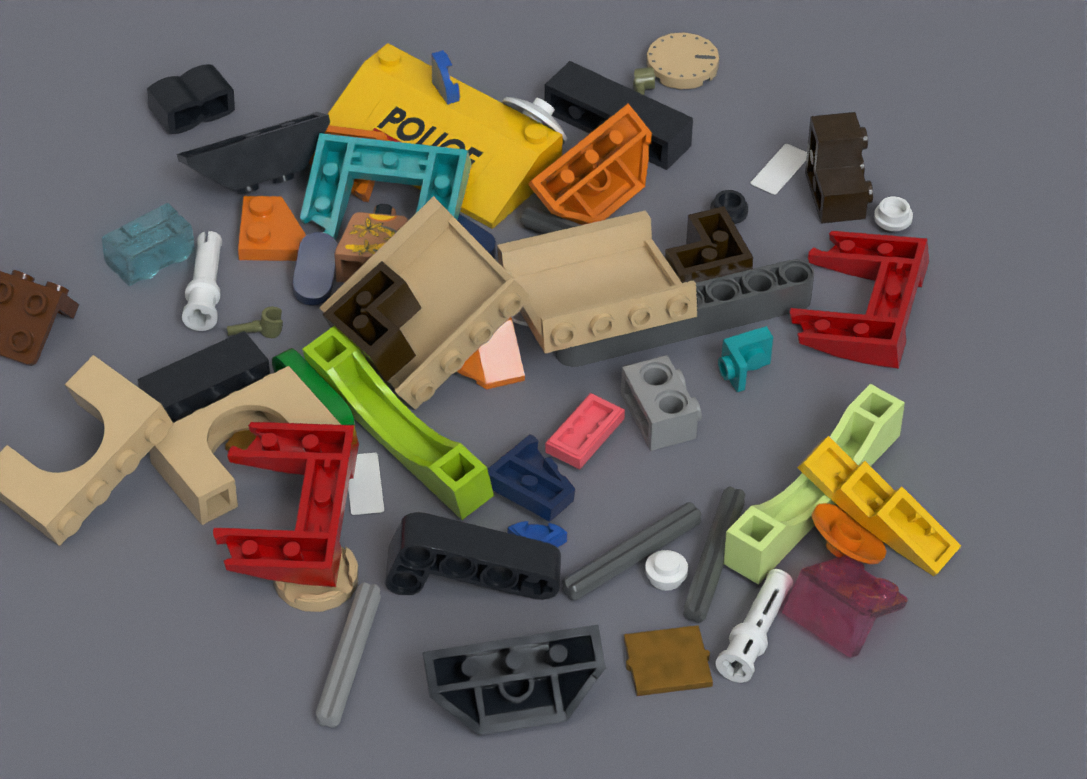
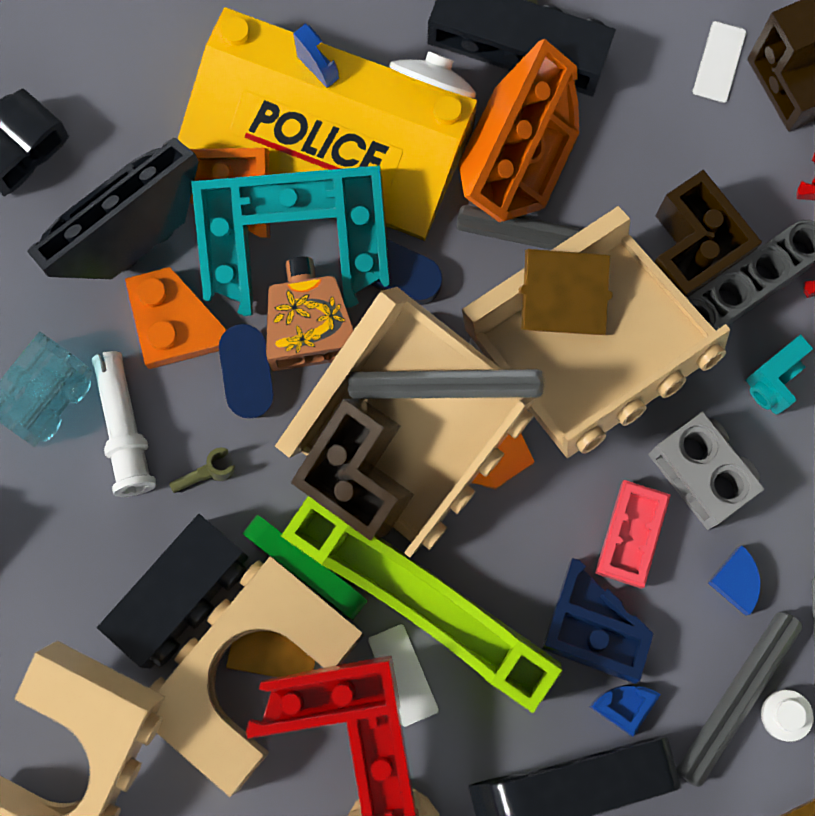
camera: 15 degrees left, 30 degrees up
(464, 270) = (446, 384): none -> dark grey axle
(582, 251) = (565, 292): none -> pearl gold piece
(660, 480) = (738, 580): none -> blue tile
(734, 204) = (686, 144): black plate -> none

